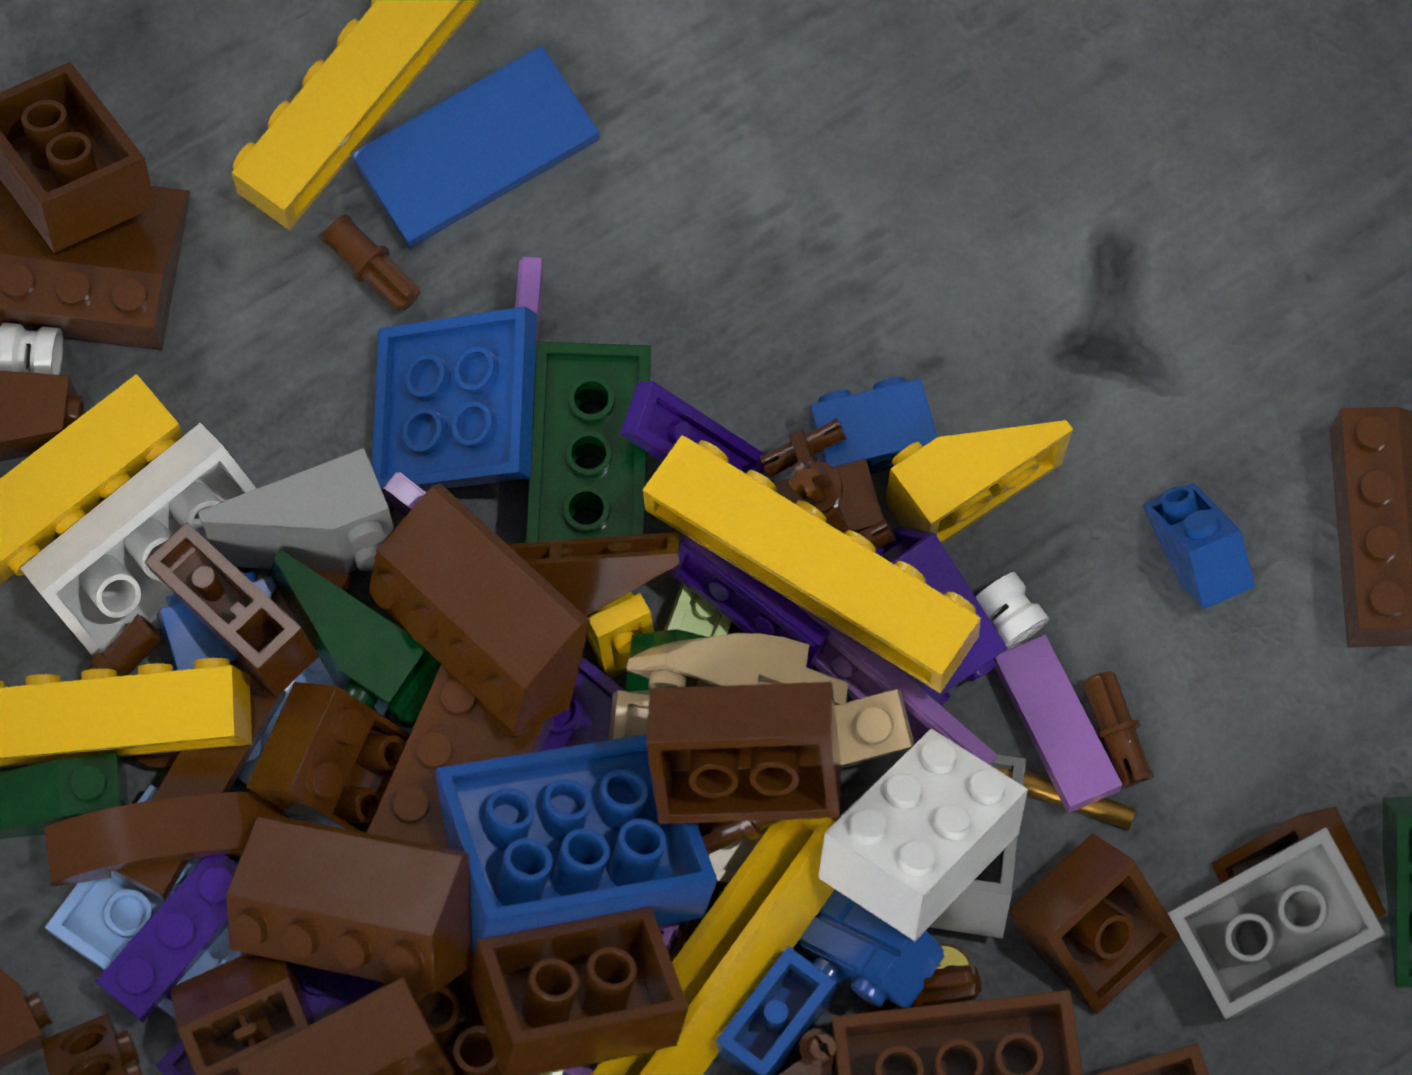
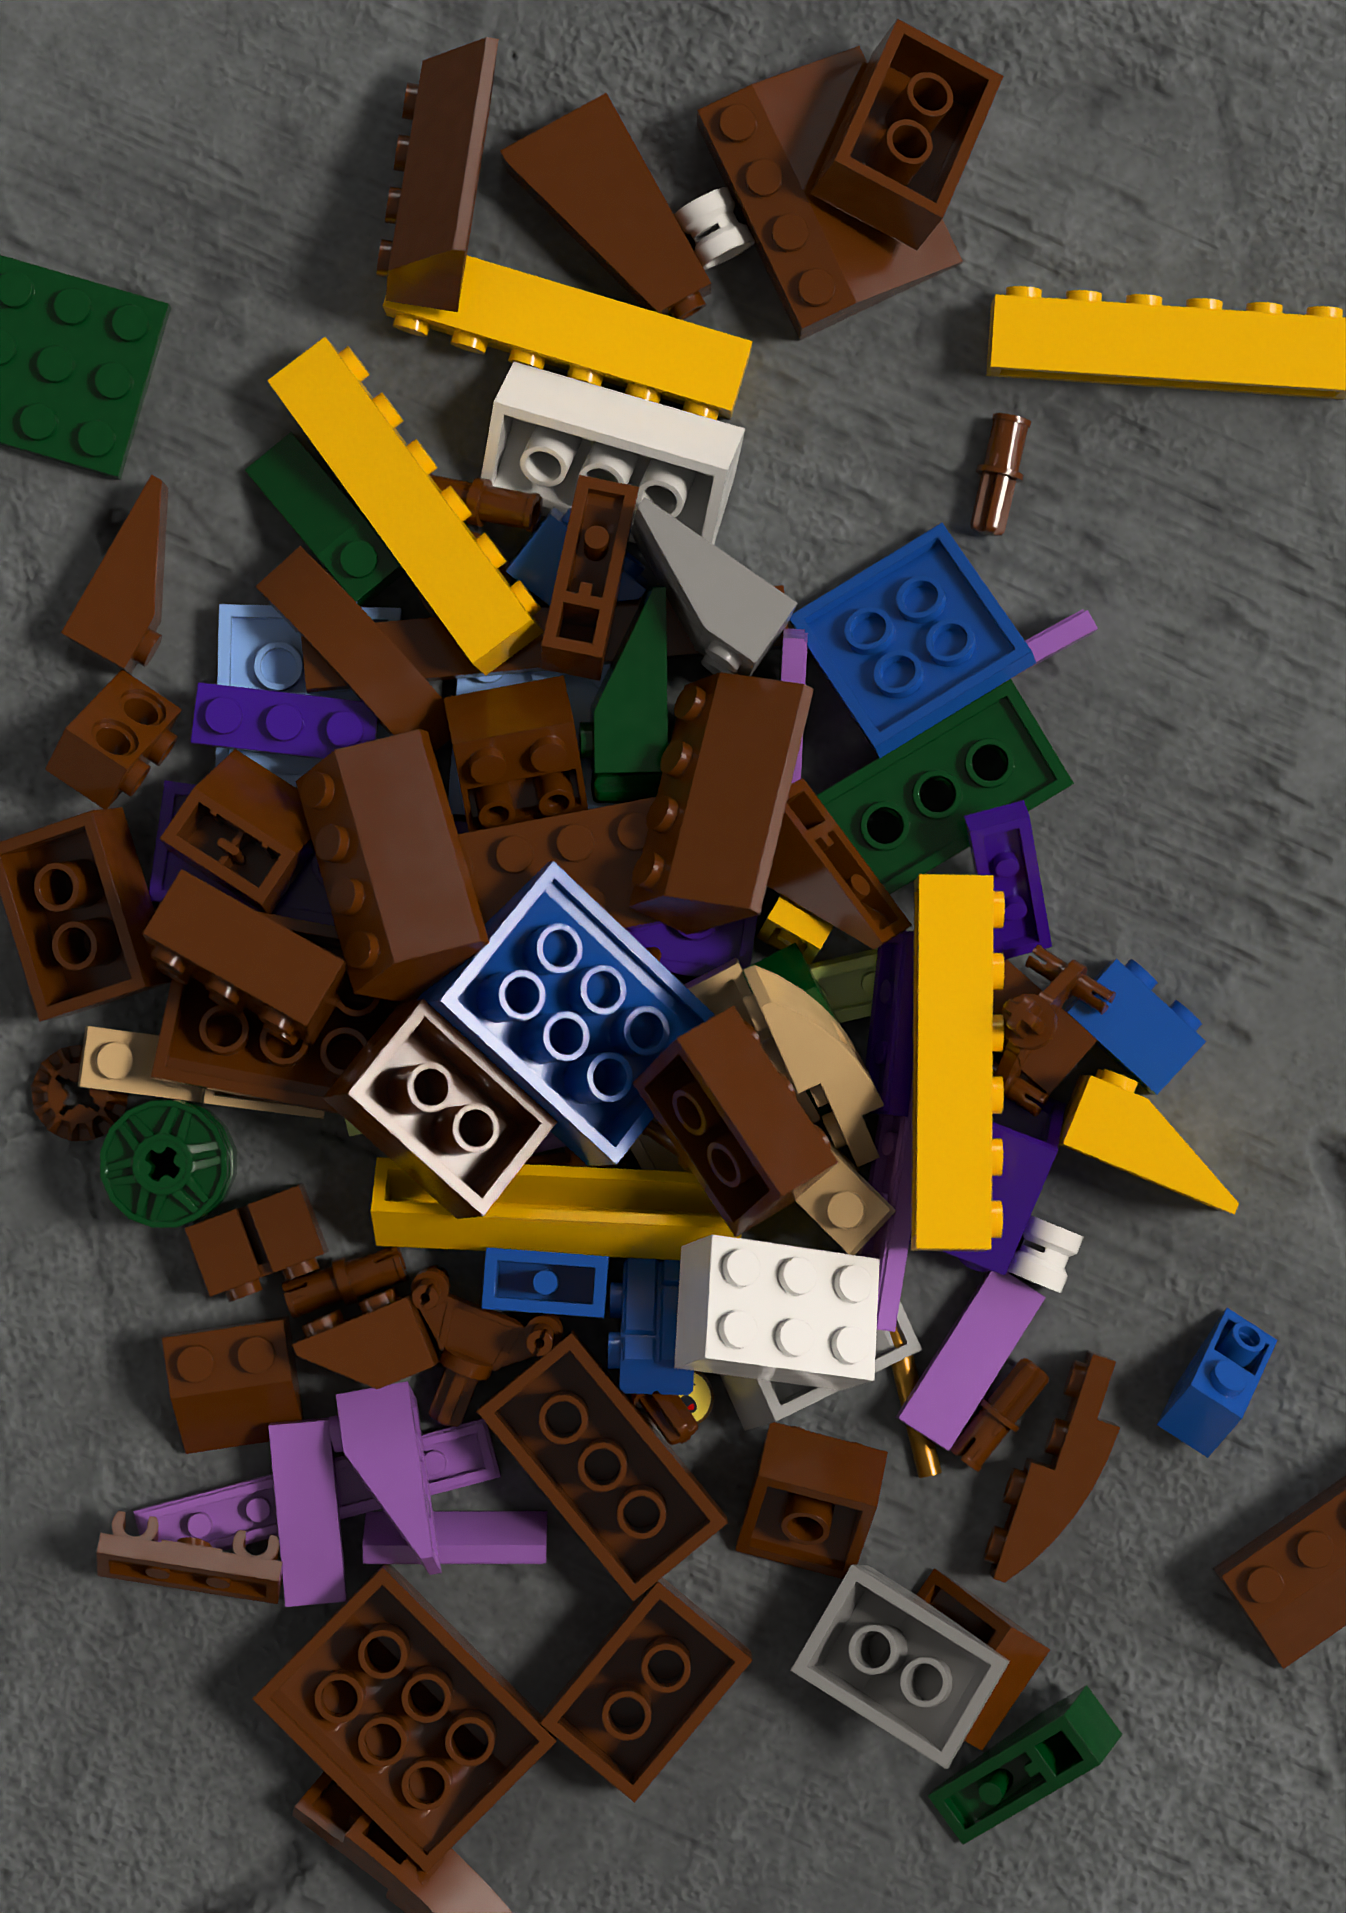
camera: 55 degrees right, 15 degrees up
(475, 146) = (1175, 490): blue tile -> none
(1208, 726) = (1050, 1495): none -> reddish brown slope

